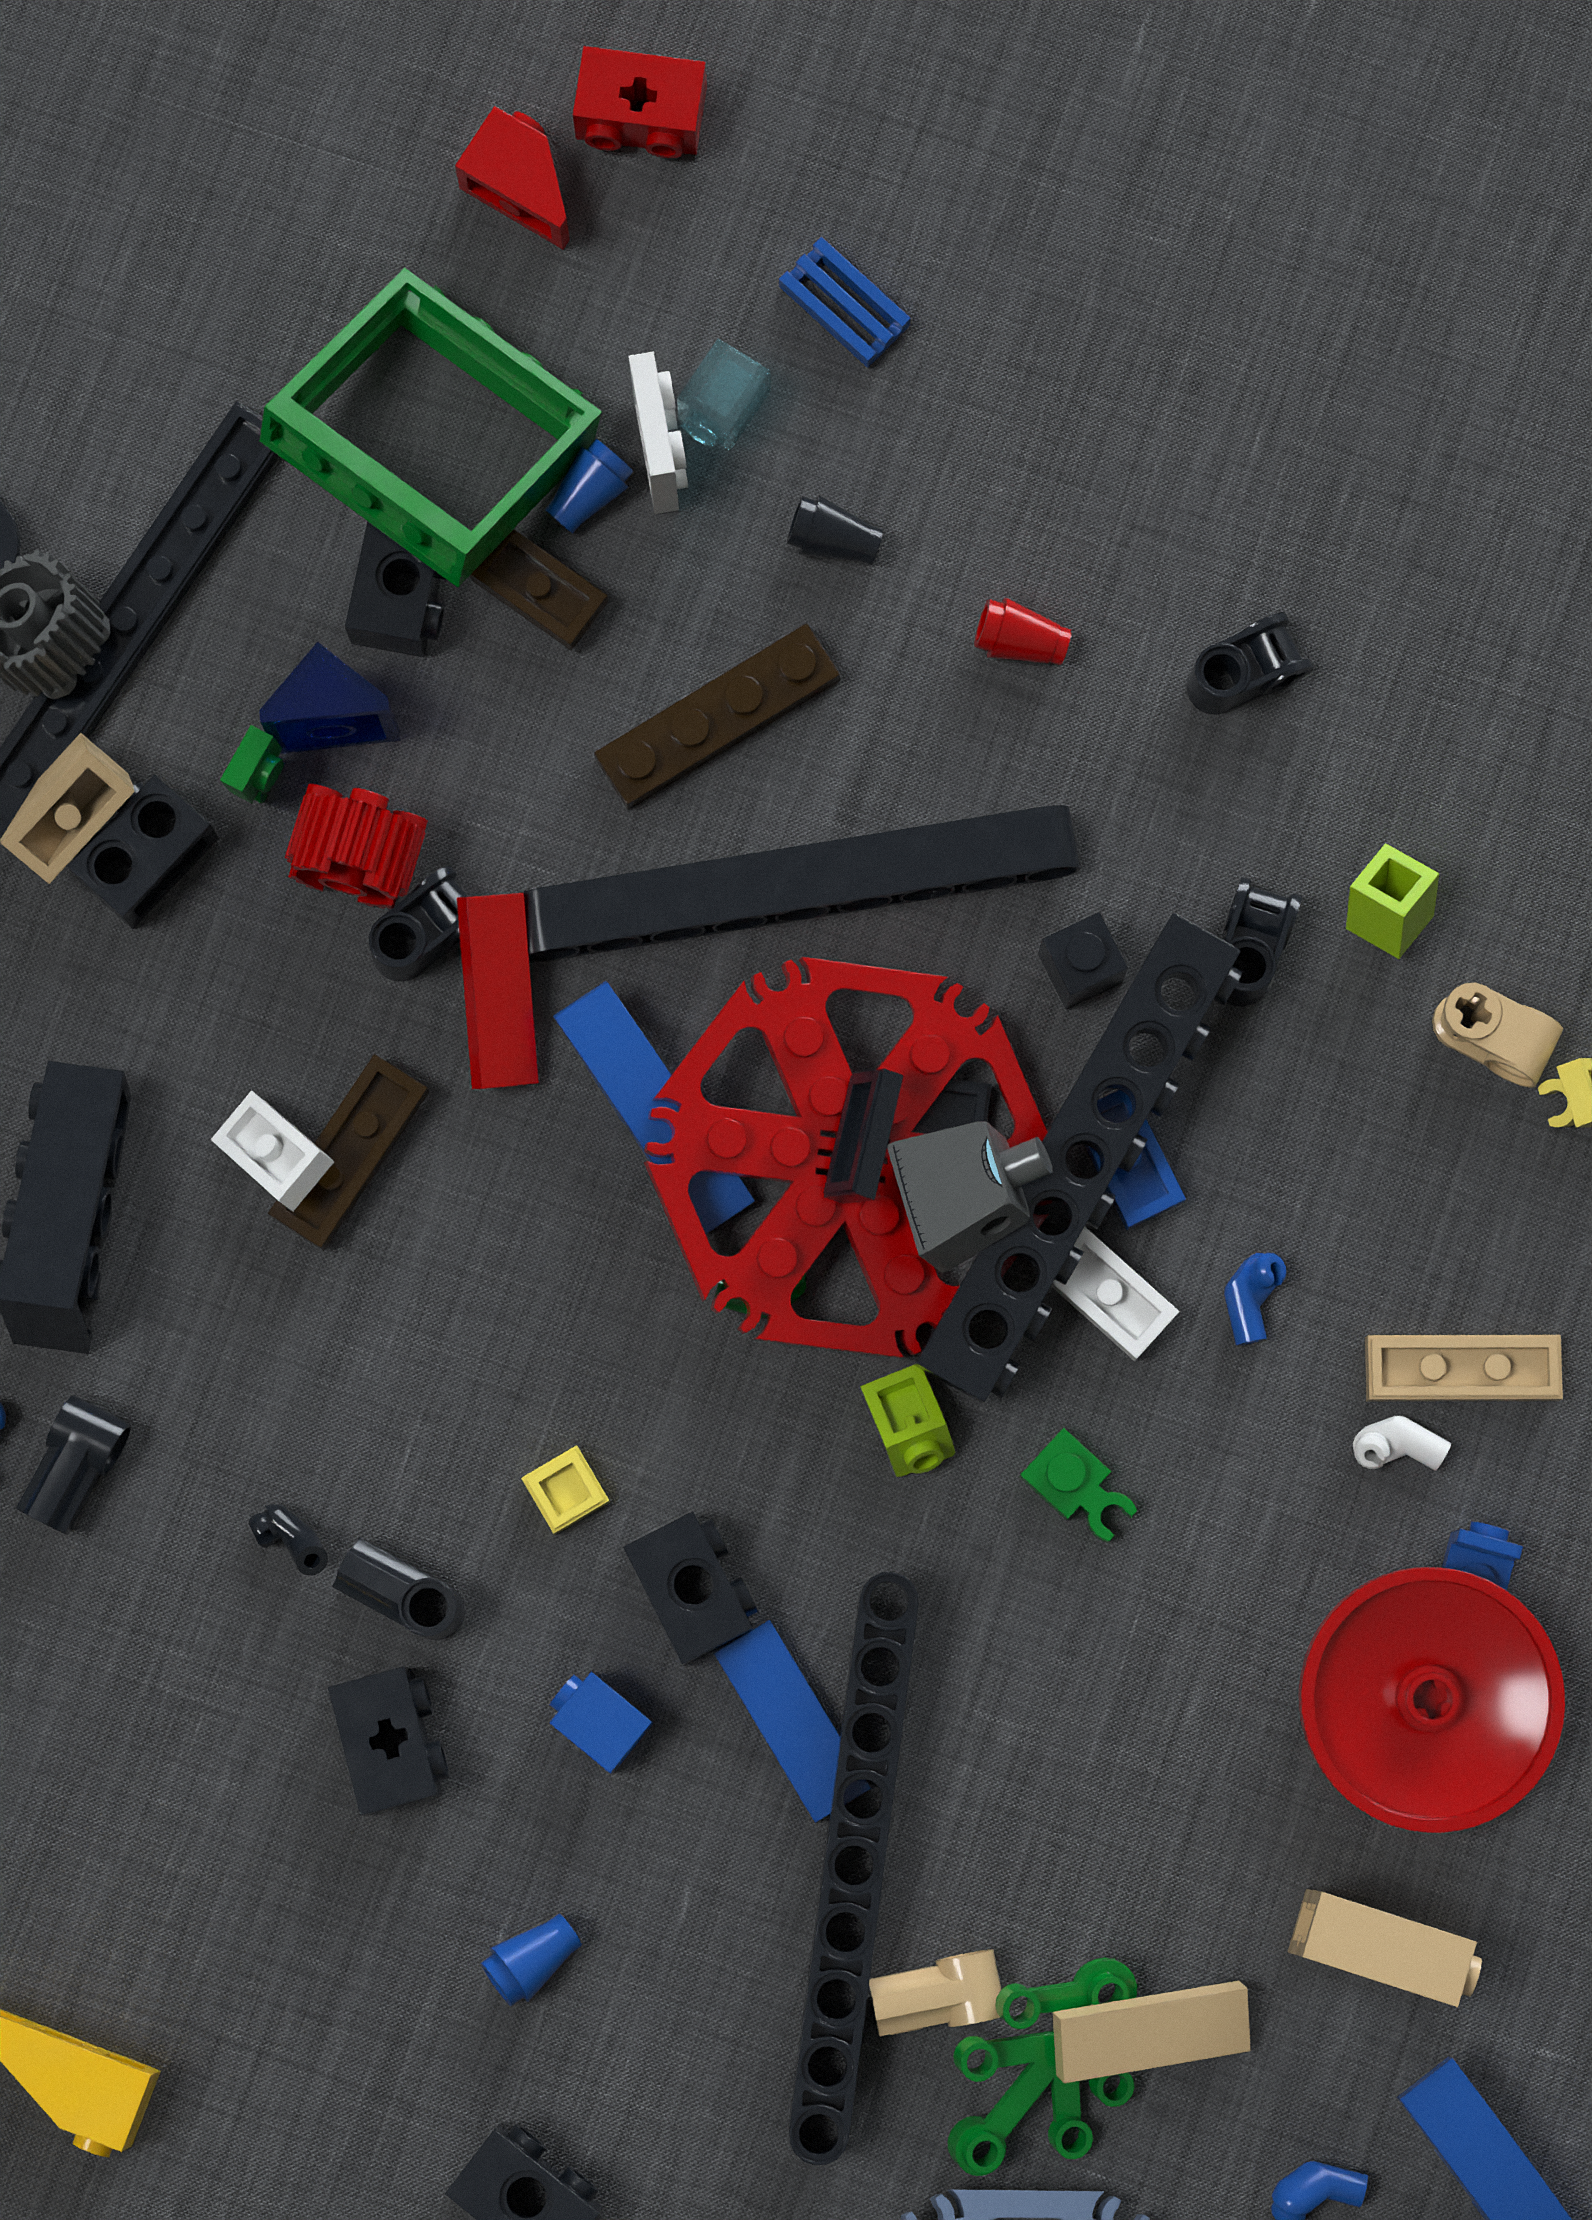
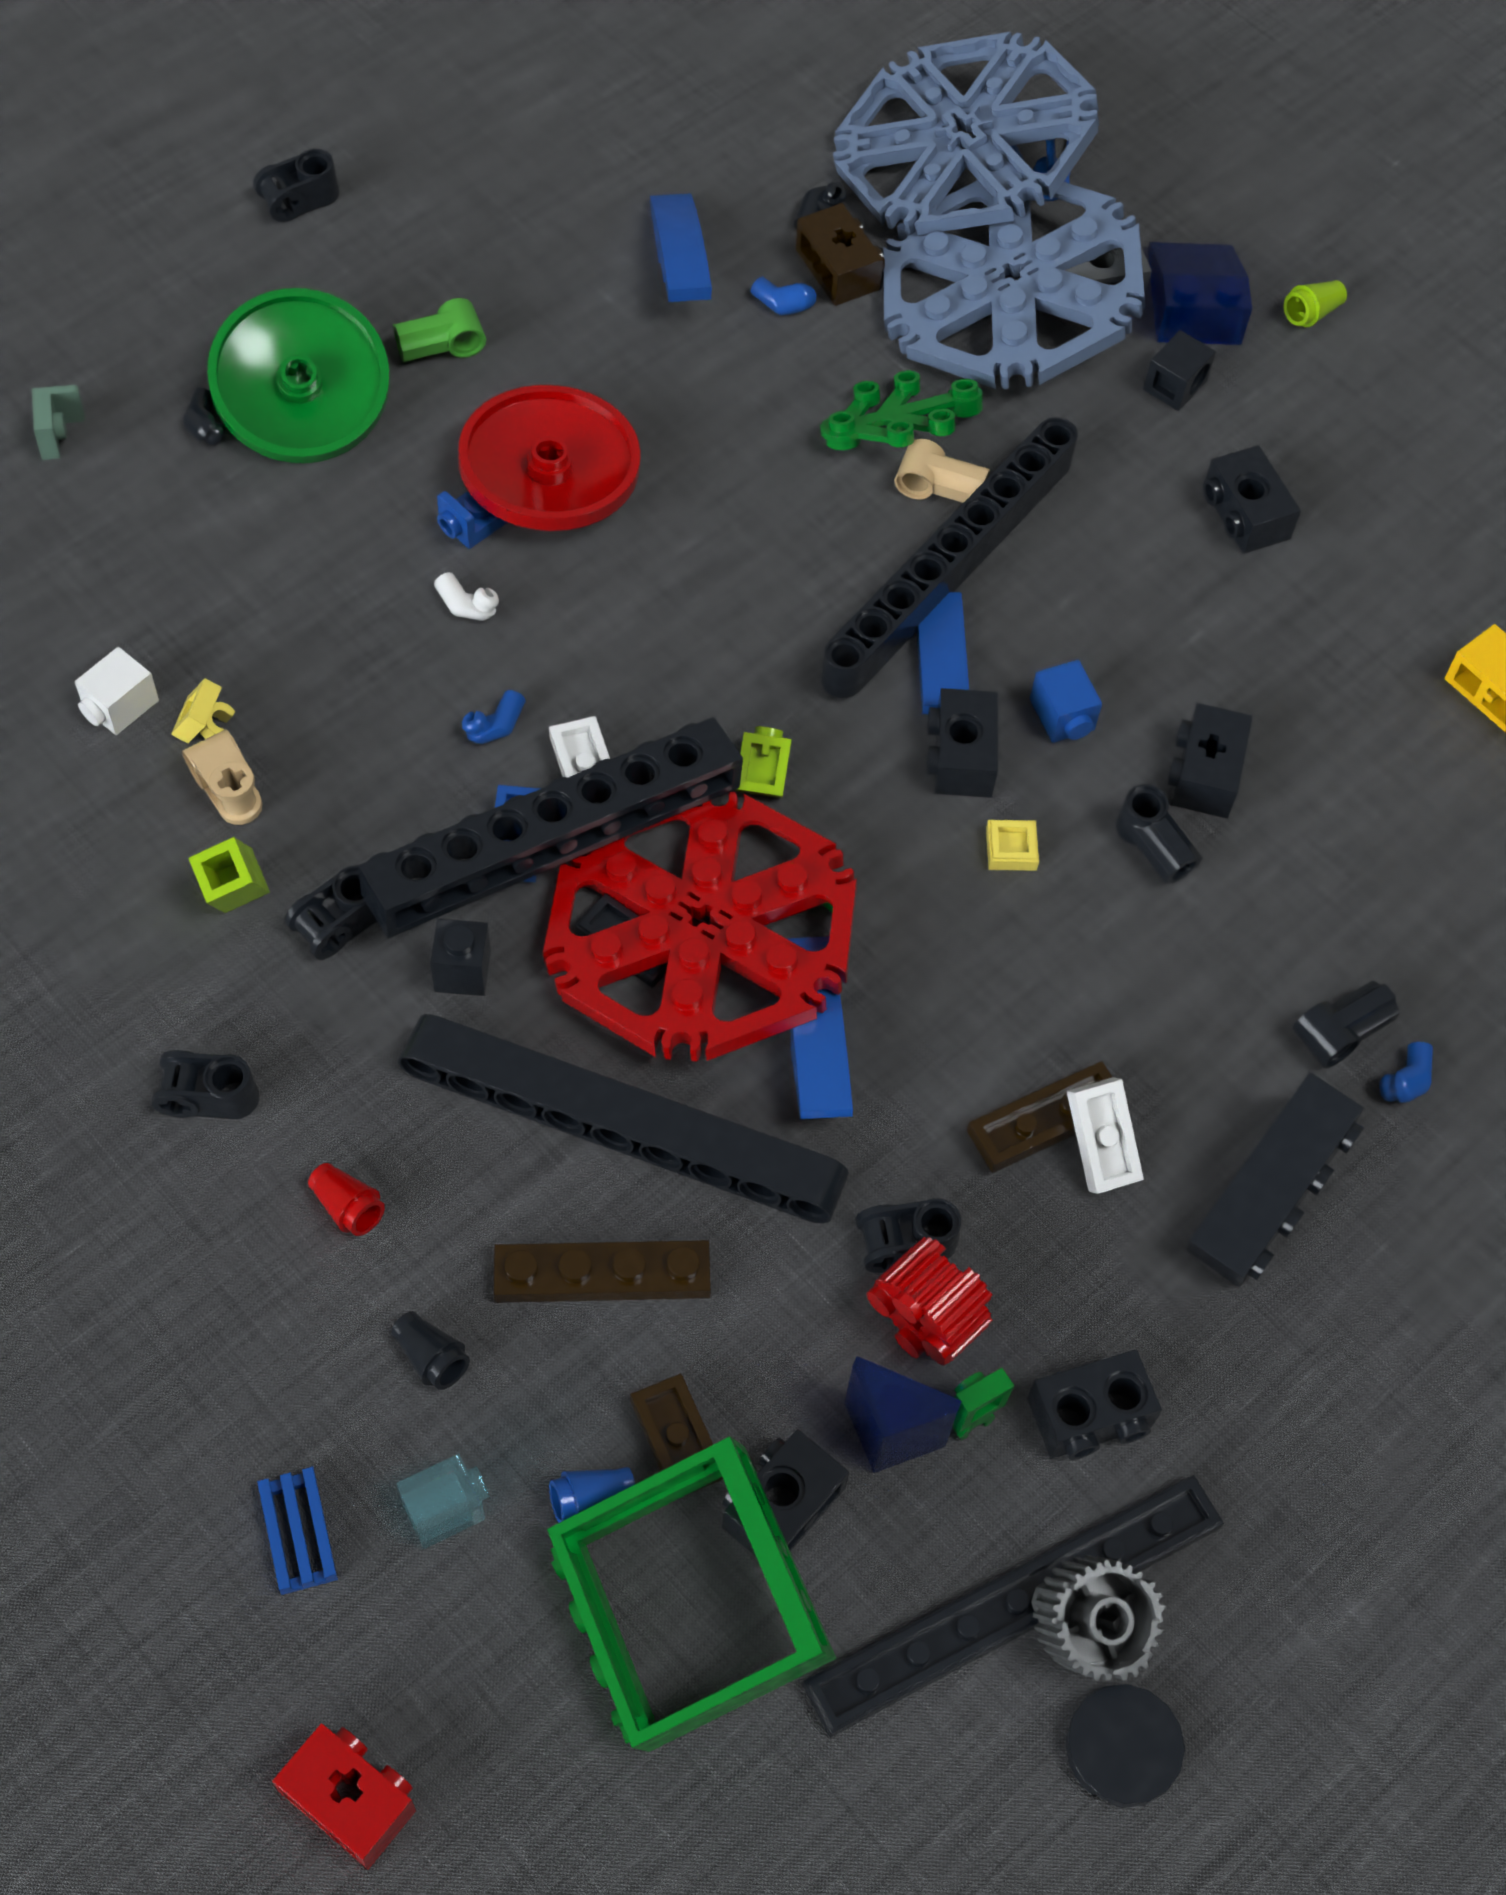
camera: 155 degrees left, 20 degrees down
(67, 808) = (1136, 1459): tan slope -> none
(298, 1538) = (1208, 901): black arm -> none
(497, 990) = (881, 1156): red tile -> none
(515, 174) = (486, 1792): red slope -> none
(529, 1959) = (1181, 610): blue cone -> none
(655, 416) = (510, 1498): white plate -> none
(863, 1136) = (688, 902): black tile -> none
(964, 1189) = (644, 825): dark grey torso -> none
(1070, 1478) = (679, 684): green plate -> none
(1151, 2031) = (829, 394): tan tile -> none
(1385, 1948) = (669, 358): tan window -> none
(1463, 1368) = (395, 620): tan tile -> none

